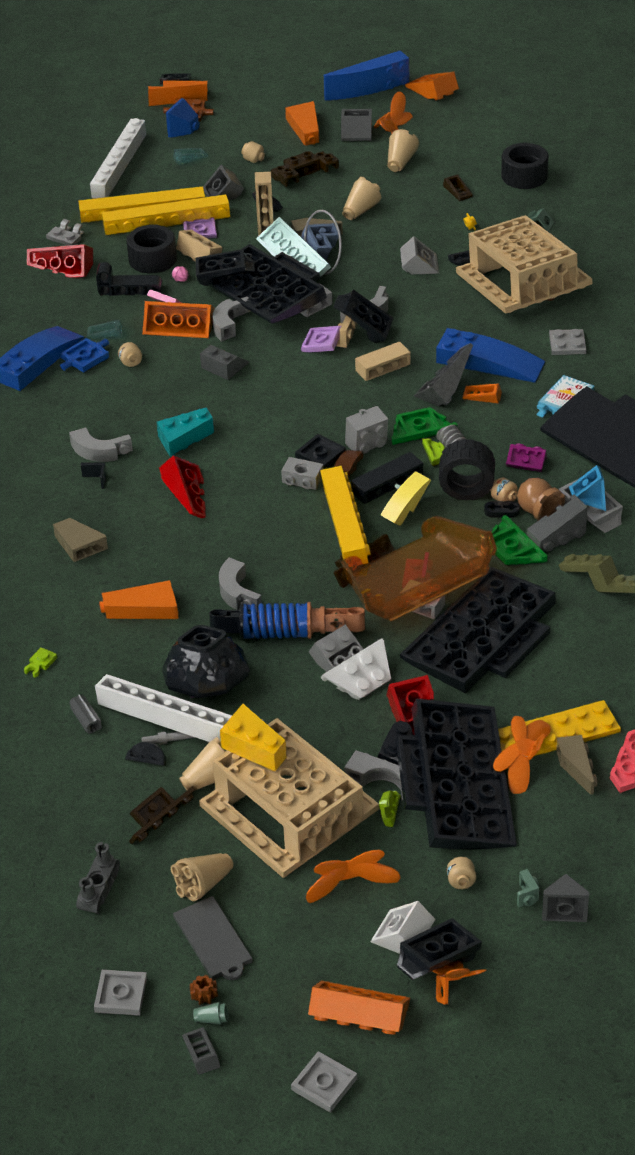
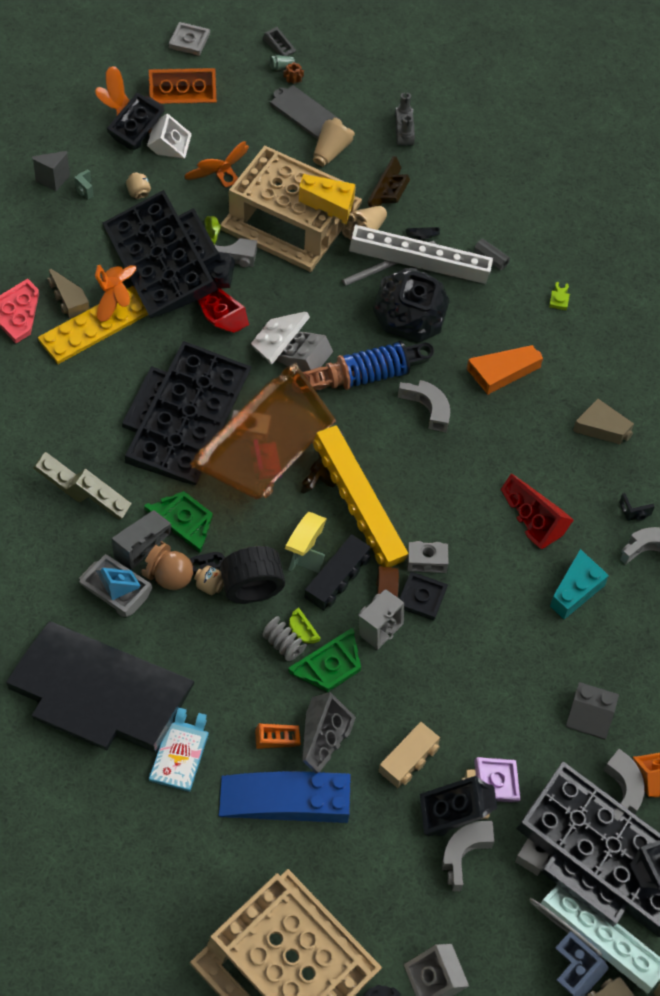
camera: 155 degrees right, 15 degrees up
(120, 992) = (350, 63): light grey plate -> none
(526, 457) = (199, 640): magenta bracket -> none
(567, 342) = (199, 858): light grey plate -> none

